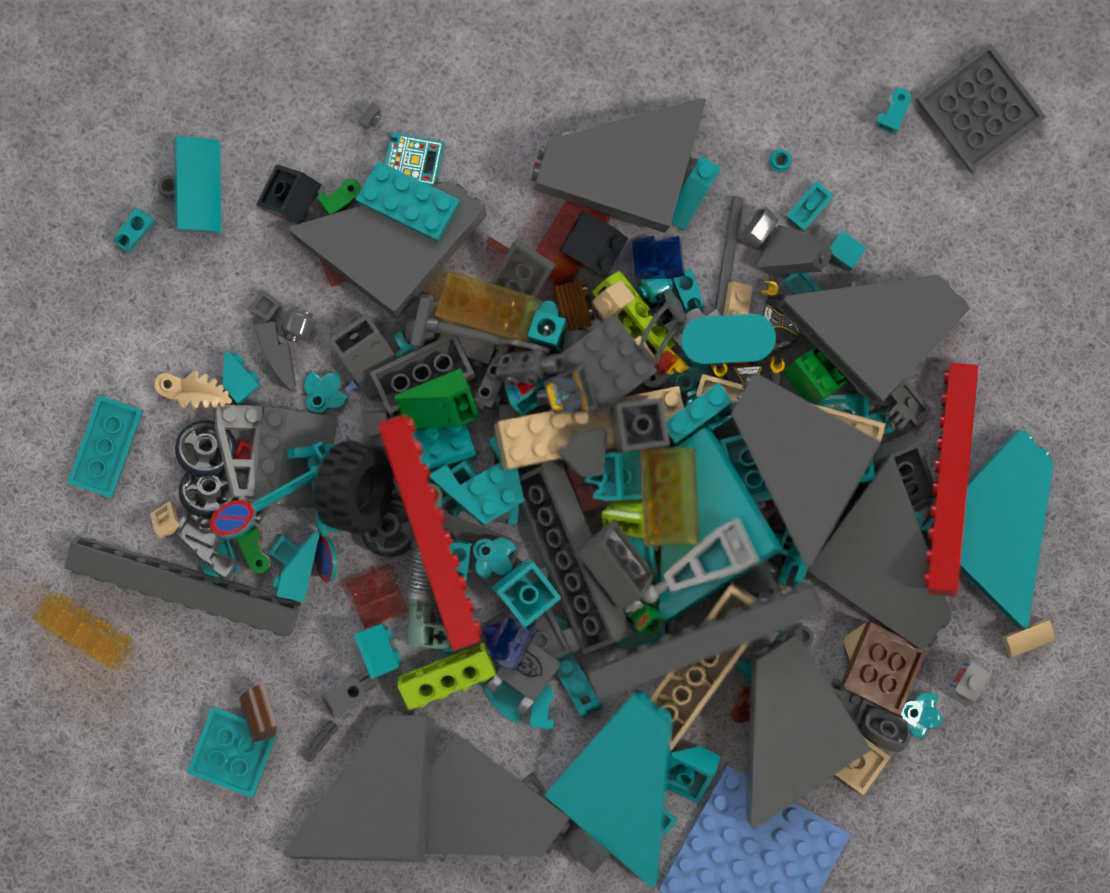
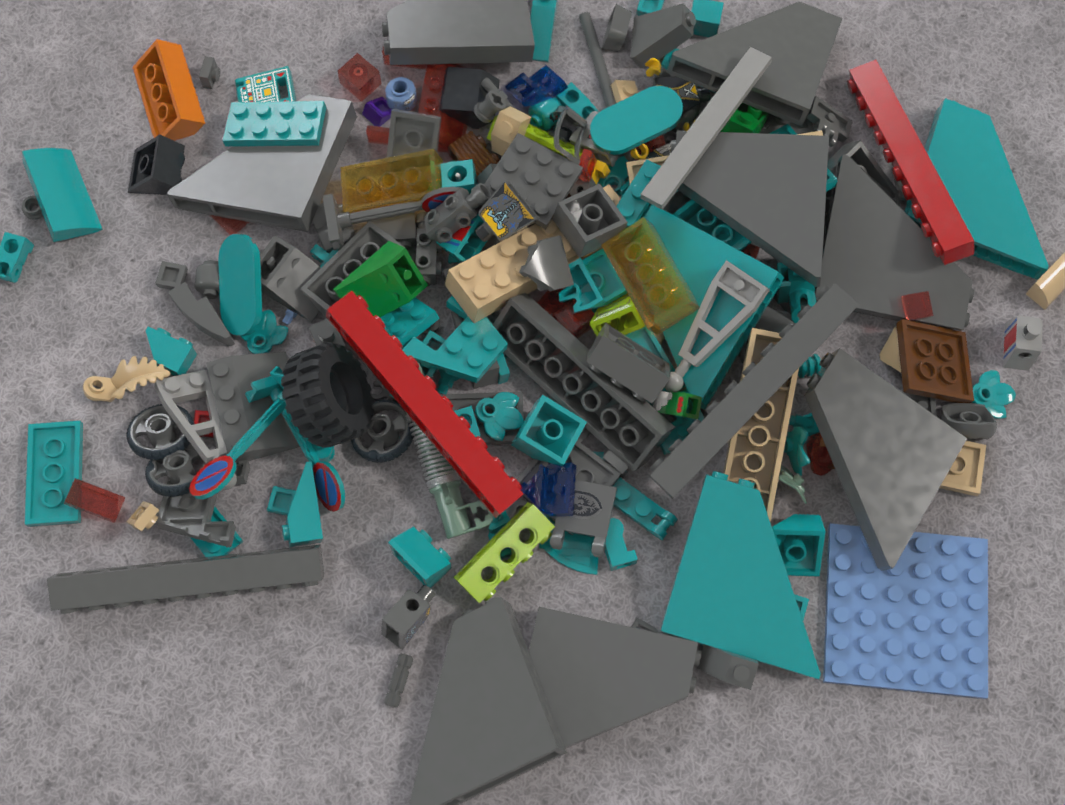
camera: 20 degrees left, 15 degrees down
(83, 631) = (93, 666): clear yellow brick -> none
(130, 486) = (94, 500): none -> clear red tile
(229, 755) = (308, 732): teal plate -> none
(253, 552) = (256, 519): green leg -> none
(258, 713) = (320, 674): reddish brown brick -> none
(319, 347) = (240, 284): none -> teal tile
(326, 122) = (168, 91): none -> orange slope
(340, 198) = (207, 151): green leg -> none
(377, 596) = (397, 505): clear red slope -> none
(503, 179) = (359, 77): none -> clear red piece
(509, 218) = (377, 111): none -> dark purple slope
(533, 206) = (401, 94): none -> medium blue head
(609, 270) = (495, 101): none -> dark grey piece
(710, 719) = (793, 481): none -> sand green piece
(728, 686) = (794, 448): none -> teal plate
(780, 383) = (706, 128): none -> light grey tile
(891, 615) = (917, 306): none -> clear red tile

